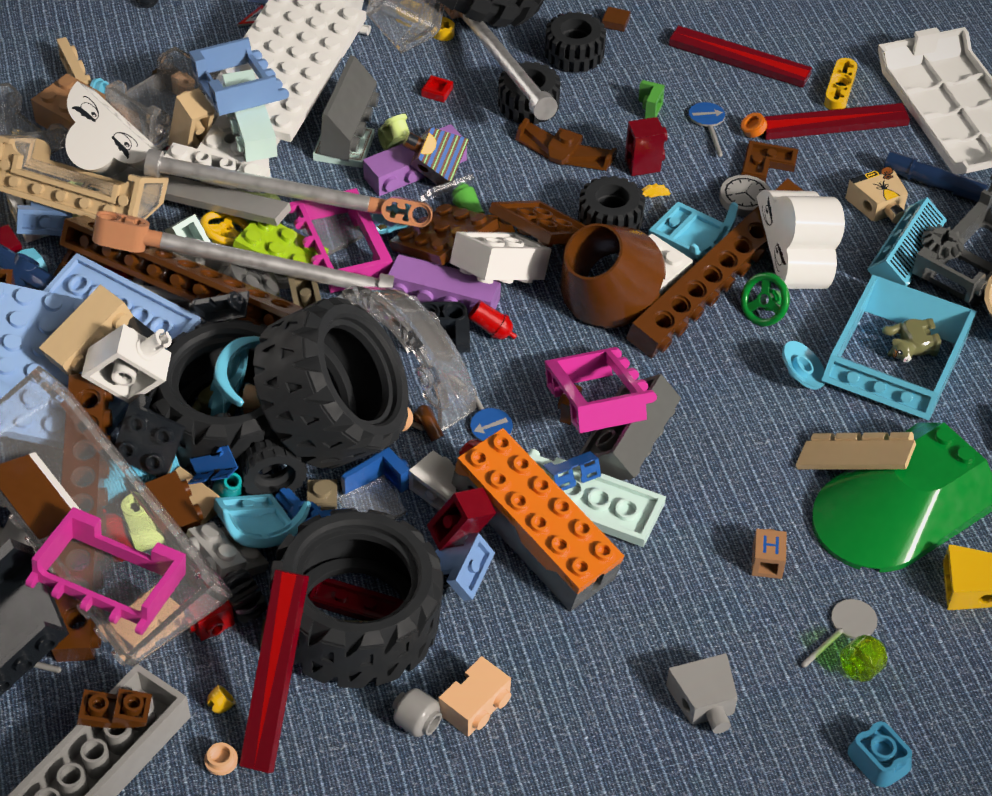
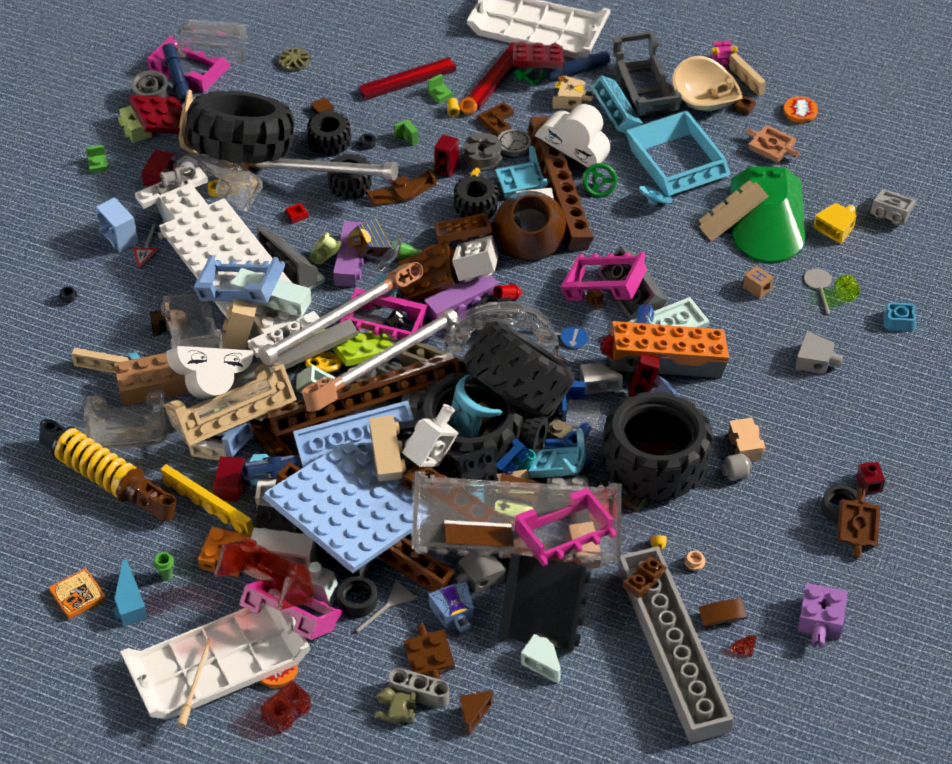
camera: 50 degrees left, 0 degrees up
(221, 307) = (414, 385): black hinge -> none
(274, 671) = (681, 497): dark red tile -> none
(355, 250) = (395, 318): none -> black tile
(606, 80) = (367, 141): none -> black tile
(695, 175) = (482, 151): none -> dark grey wheel
(708, 115) = (439, 119): blue piece -> none
(737, 114) = (453, 107): none -> yellow hinge
(751, 88) = (438, 89): none -> bright green bracket
(839, 77) = (465, 47): yellow beam -> none
(859, 142) = (520, 75): none -> green piece
(896, 130) = (538, 55): none -> dark red plate
(914, 340) = (676, 145): olive animal -> none
(951, 249) = (628, 90): dark grey gear -> none

